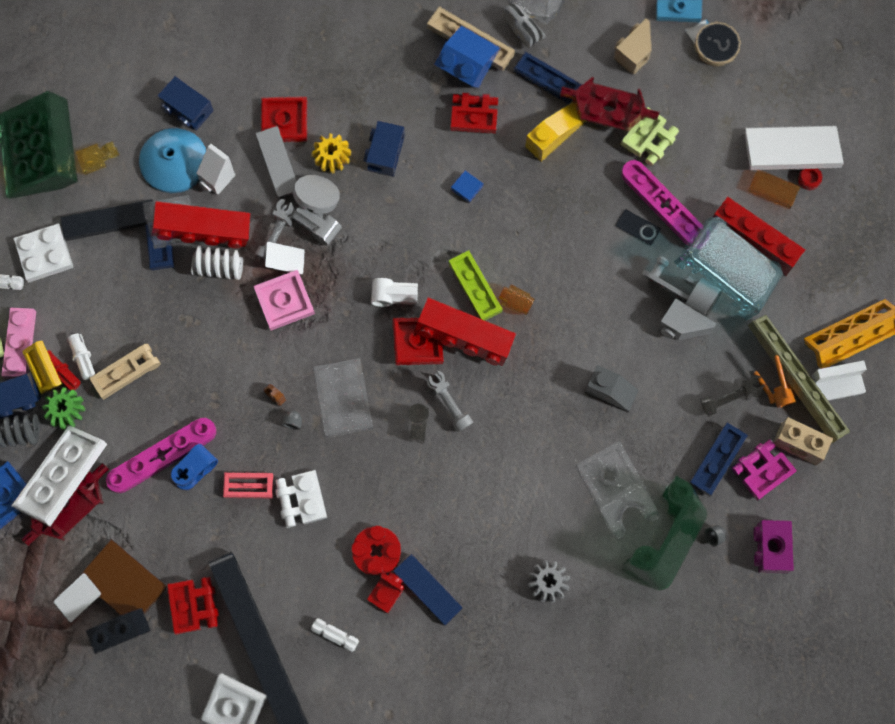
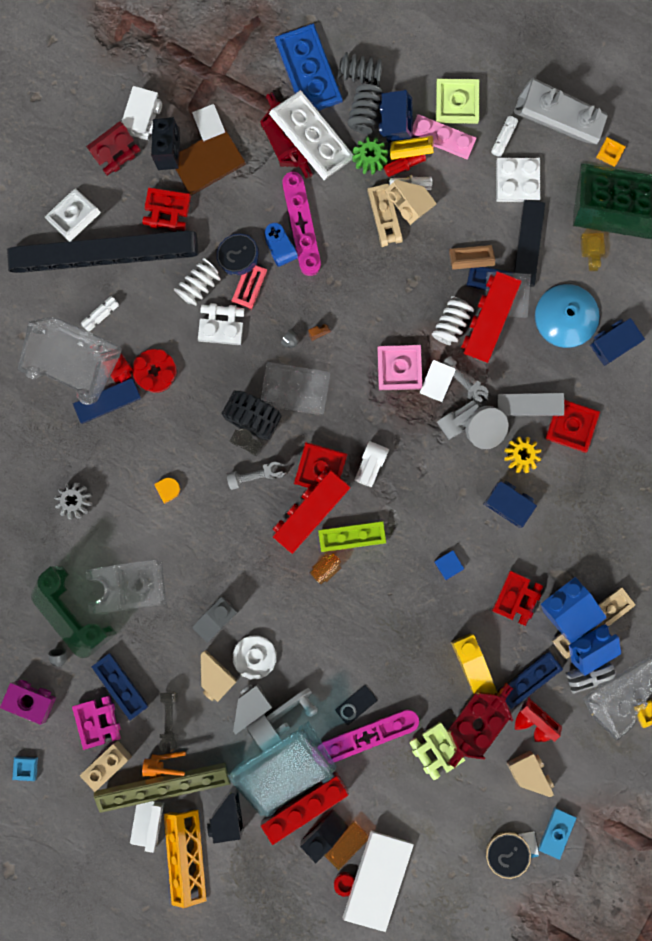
camera: 110 degrees right, 10 degrees up
(90, 675) = (141, 111): none -> white brick
(101, 346) = (410, 199): none -> tan slope
(139, 694) = (111, 143): none -> dark red plate
(142, 269) = (472, 257): none -> medium nougat tile
(215, 170) = (539, 345): white slope -> none
(218, 508) = (237, 254): none -> black tile
(264, 538) = (198, 282): none -> white piece
(388, 423) = (251, 414): none -> black tyre
(395, 643) = (68, 356): none -> clear windscreen
(495, 25) = (594, 649): none -> blue brick
(497, 488) = (168, 489): none -> light orange tile
(579, 61) = (532, 714): none -> red tile
(632, 339) = (254, 657): none -> white tile
(670, 367) = (214, 677): none -> tan slope
(776, 210) = (323, 836): none -> black slope
(799, 302) = (227, 820): none -> black slope
(841, 526) = (25, 768): none -> dark azure tile

